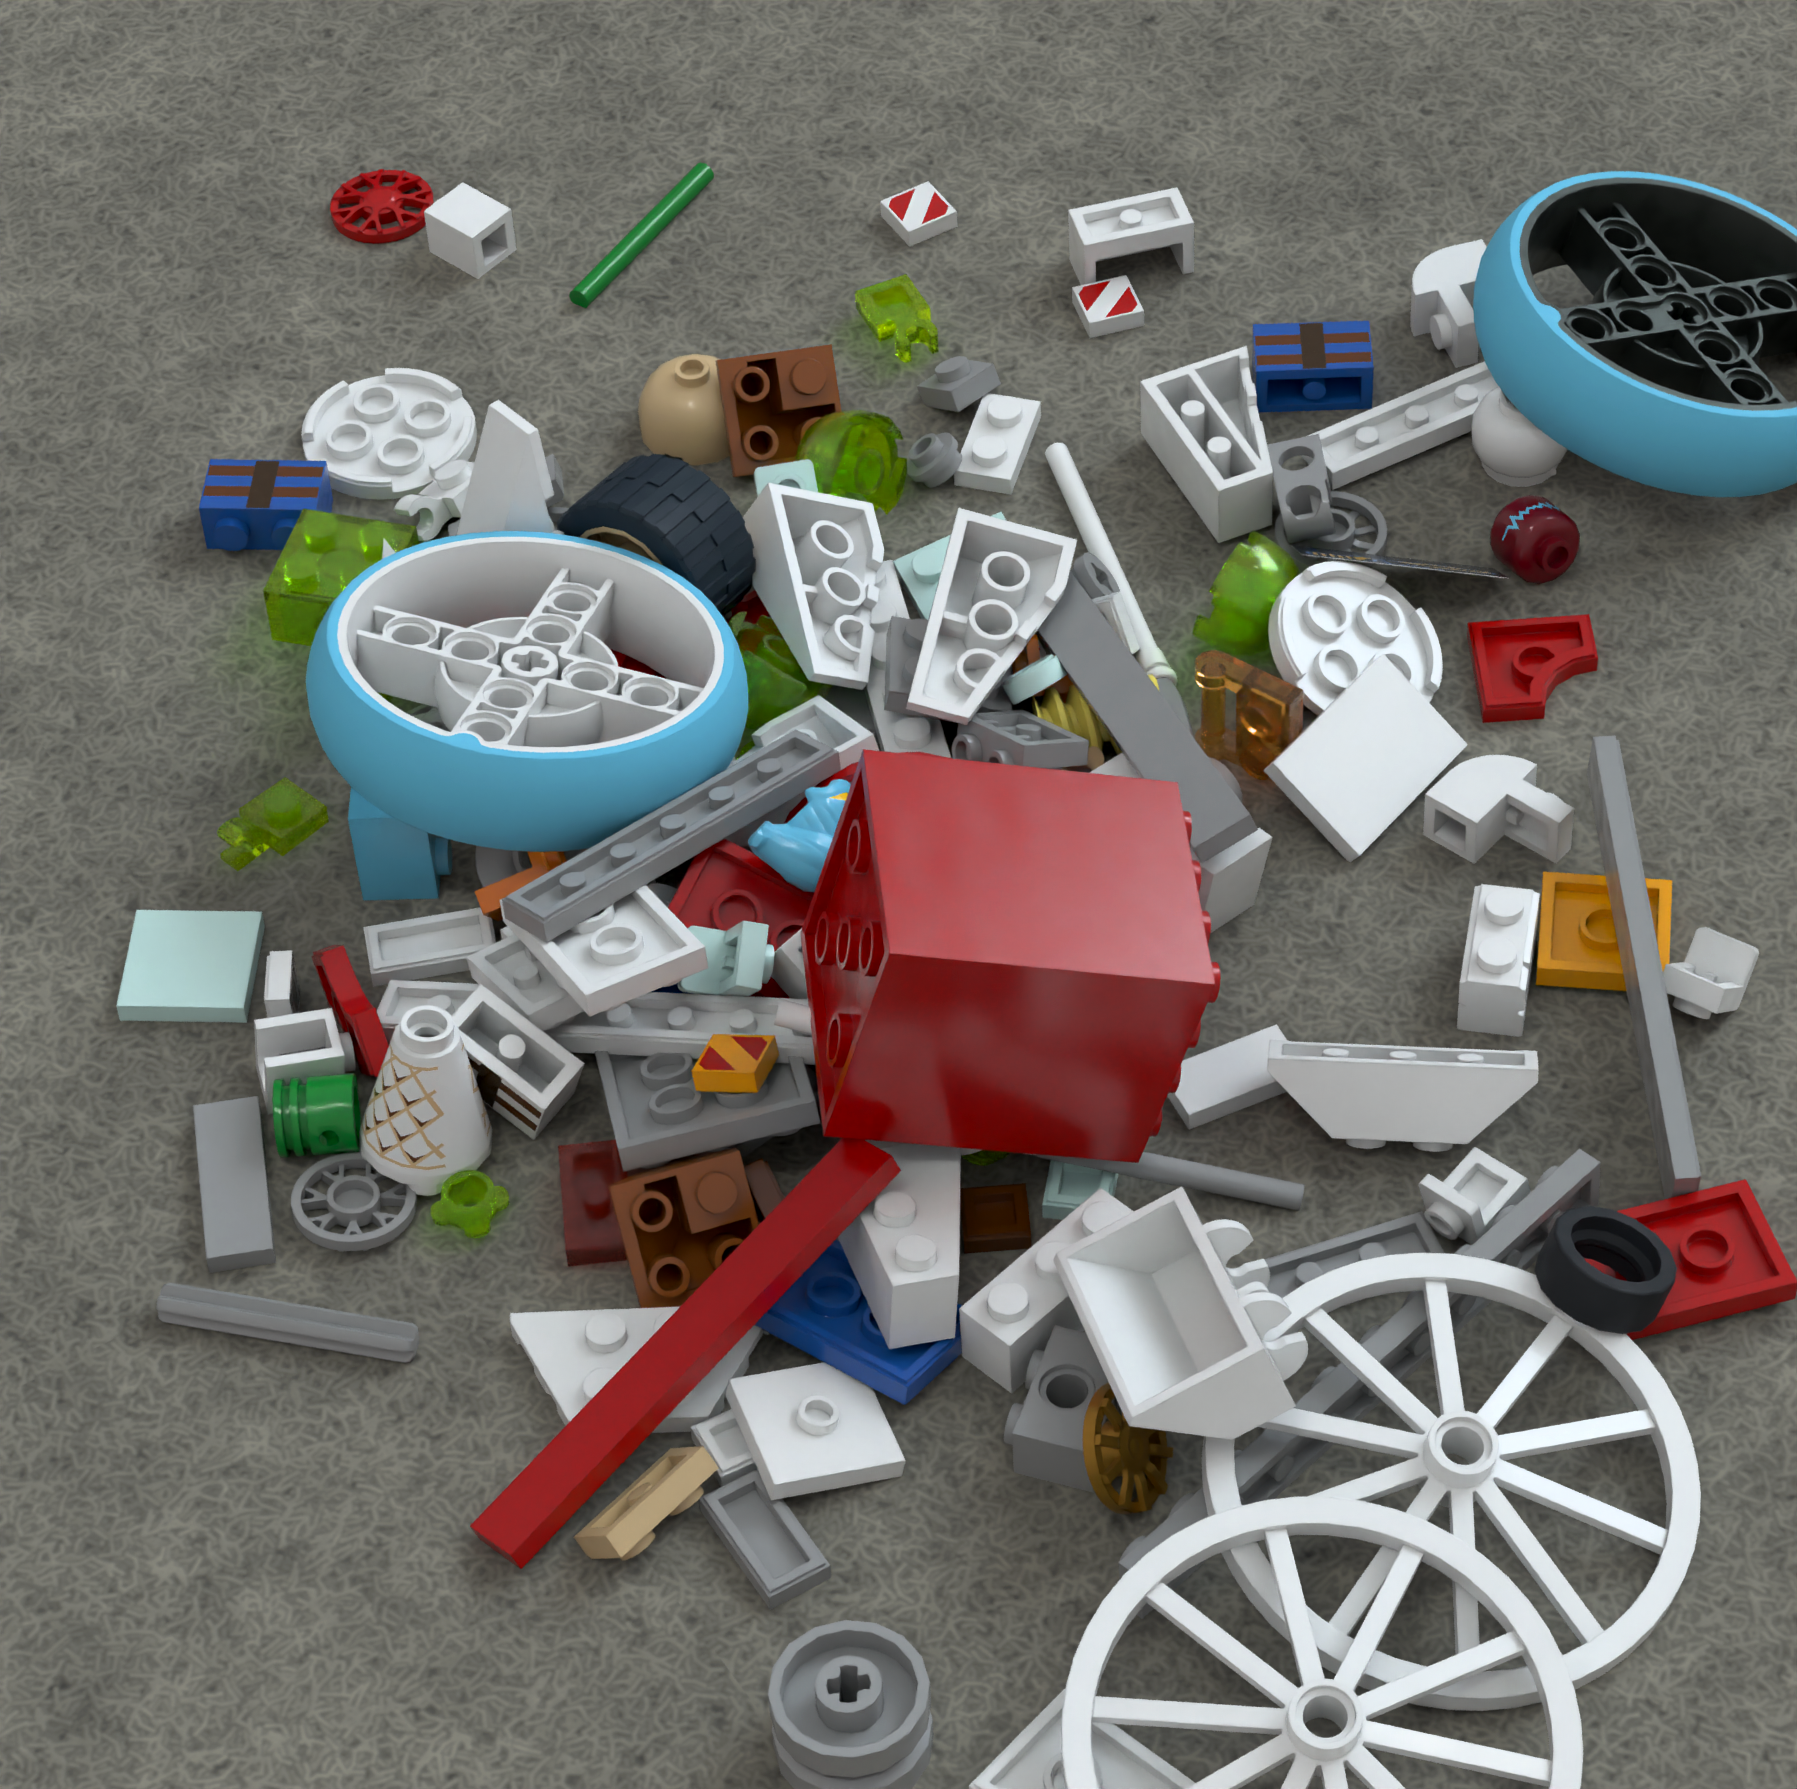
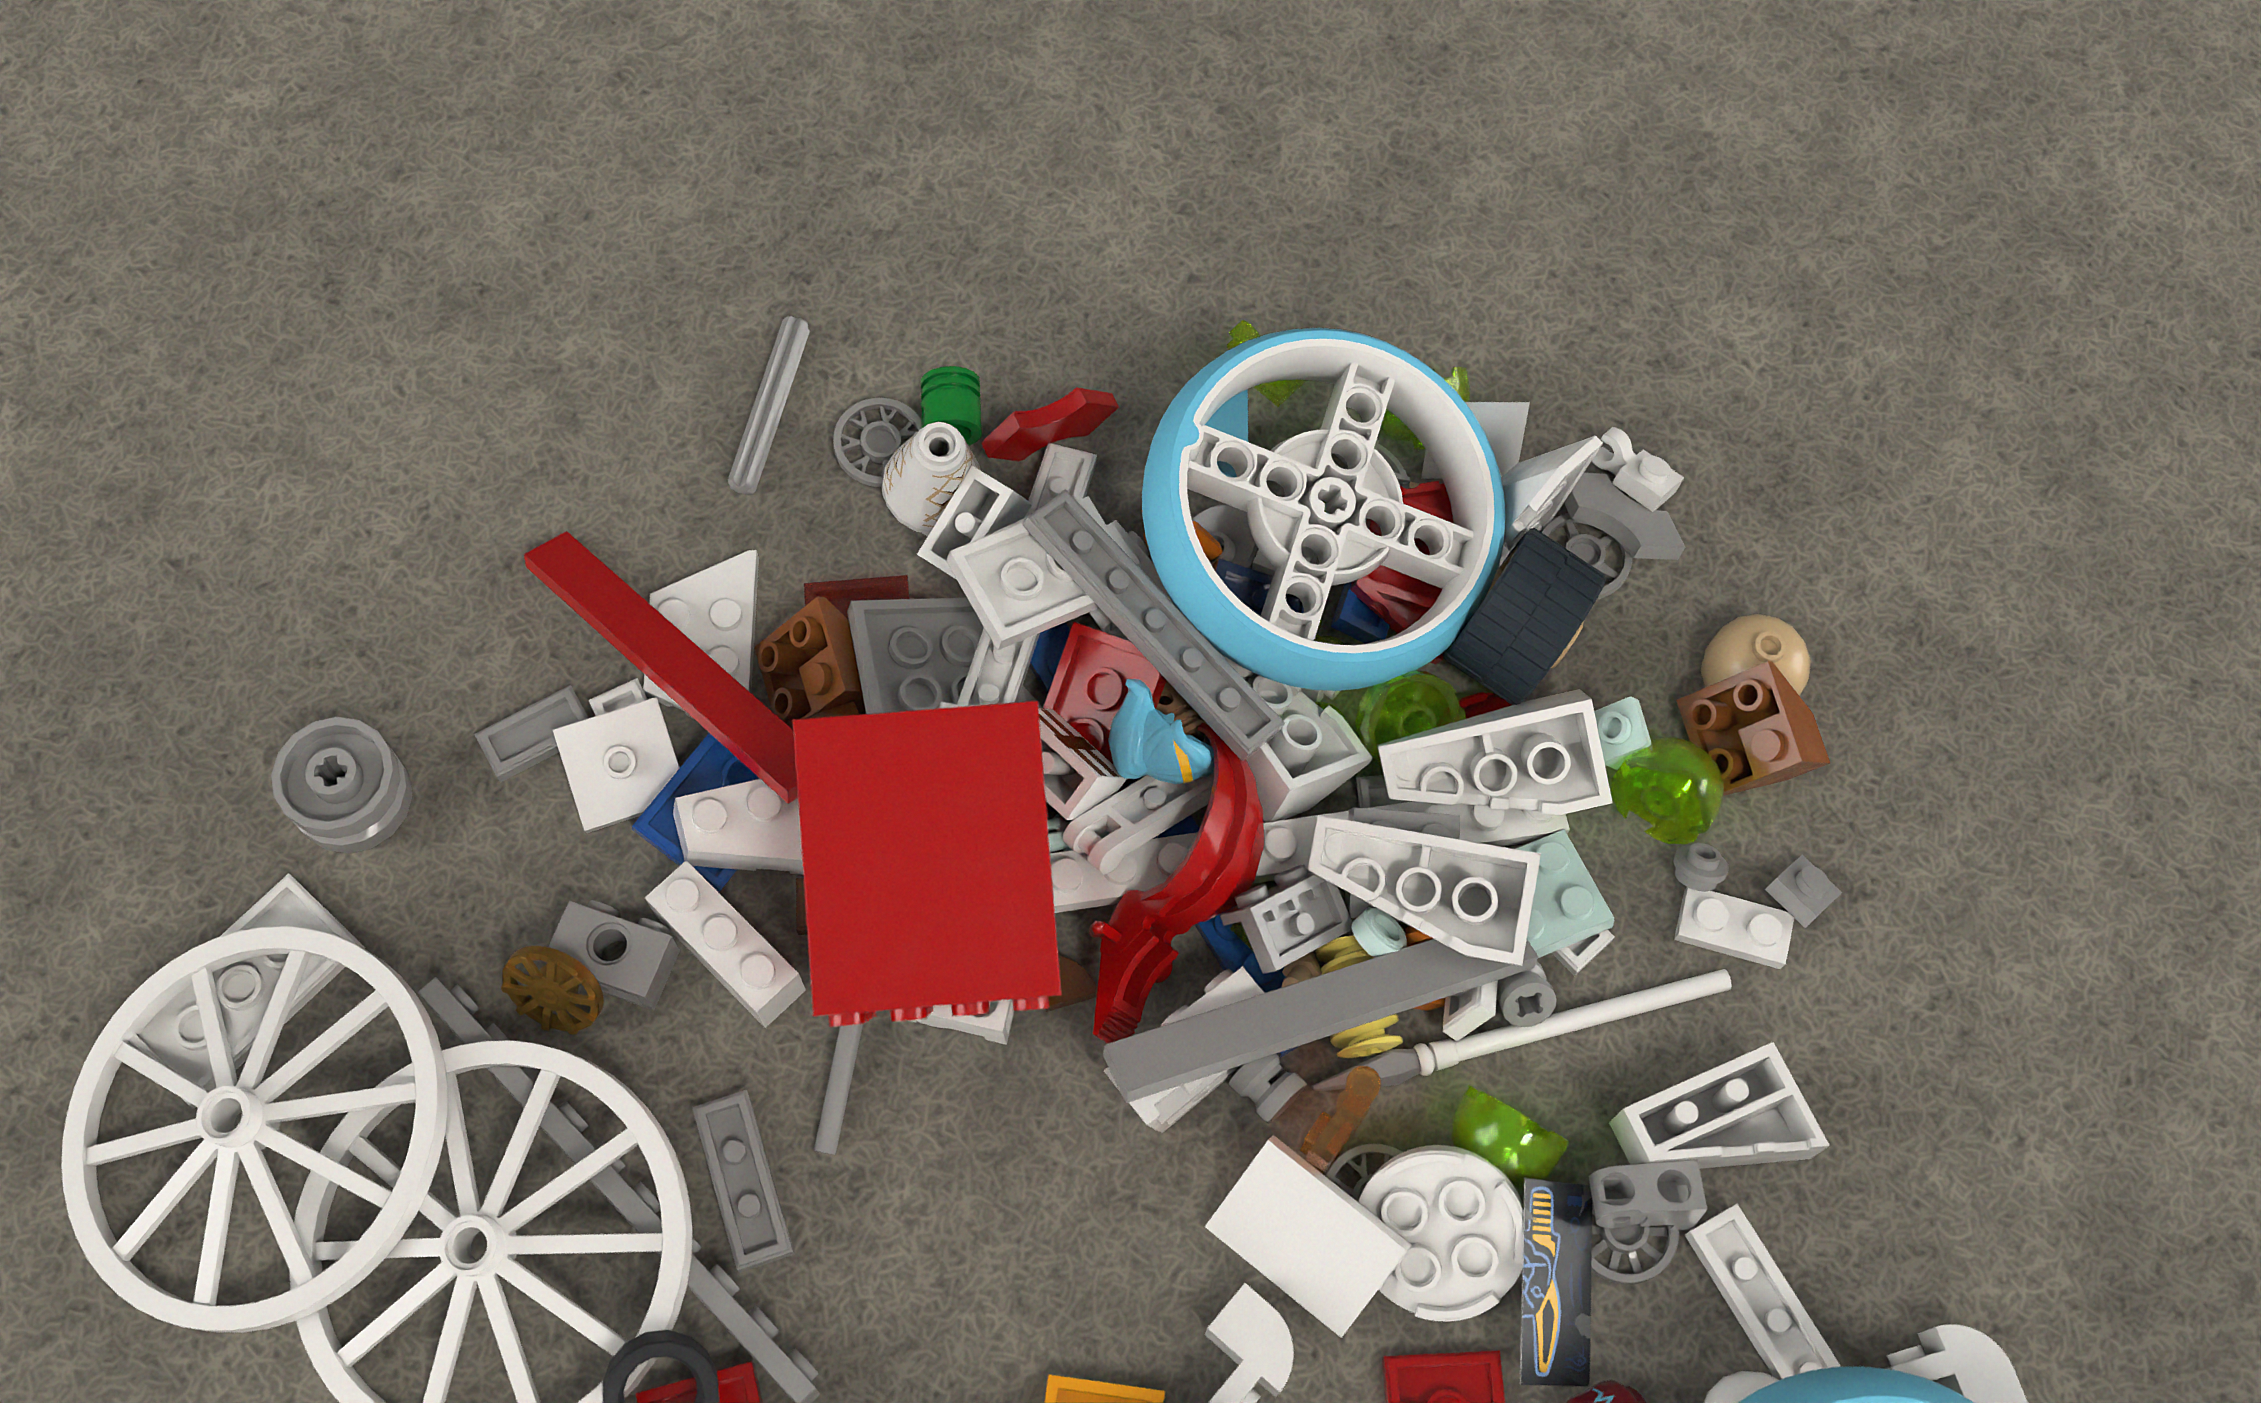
camera: 85 degrees right, 20 degrees up
(191, 966) = (1122, 319): light aqua tile -> none
(234, 1184) = (900, 360): light grey tile -> none
(260, 501) = (1618, 334): blue brick -> none
(281, 984) = (1074, 373): white tile -> none
(300, 1047) = (1008, 390): white window -> none
(319, 564) = (1536, 372): clear neon green brick -> none
(381, 206) = (2019, 408): red wheel -> none
(389, 432) = (1724, 427): white tile -> none
(426, 945) = (1126, 467): white tile -> none
(464, 1189) = (865, 507): clear neon green plate -> none
(470, 230) = (1978, 472): white brick -> none
(641, 235) = (2000, 620): green bar -> none
(660, 1491) = (564, 646): tan plate -> none
(735, 1063) = (933, 682): light orange tile -> none
(736, 961) = (1044, 674): light aqua bracket -> none
(898, 312) = (1898, 835): clear neon green plate -> none
(918, 213) = (2050, 861): white tile -> none
(1108, 306) = (1931, 1033): white tile -> none
(1130, 228) = (2017, 1050): white panel -> none
(1178, 1324) = (606, 1016): white piece -> none
(1226, 1079) = (958, 1102): white tile -> none
(1312, 366) = (1846, 1221): blue brick -> none
(1401, 1090) = (917, 1238): white wedge -> none
(1471, 1196) = (793, 1293): white bracket -> none
(1498, 960) = (1057, 1338): white brick -> none

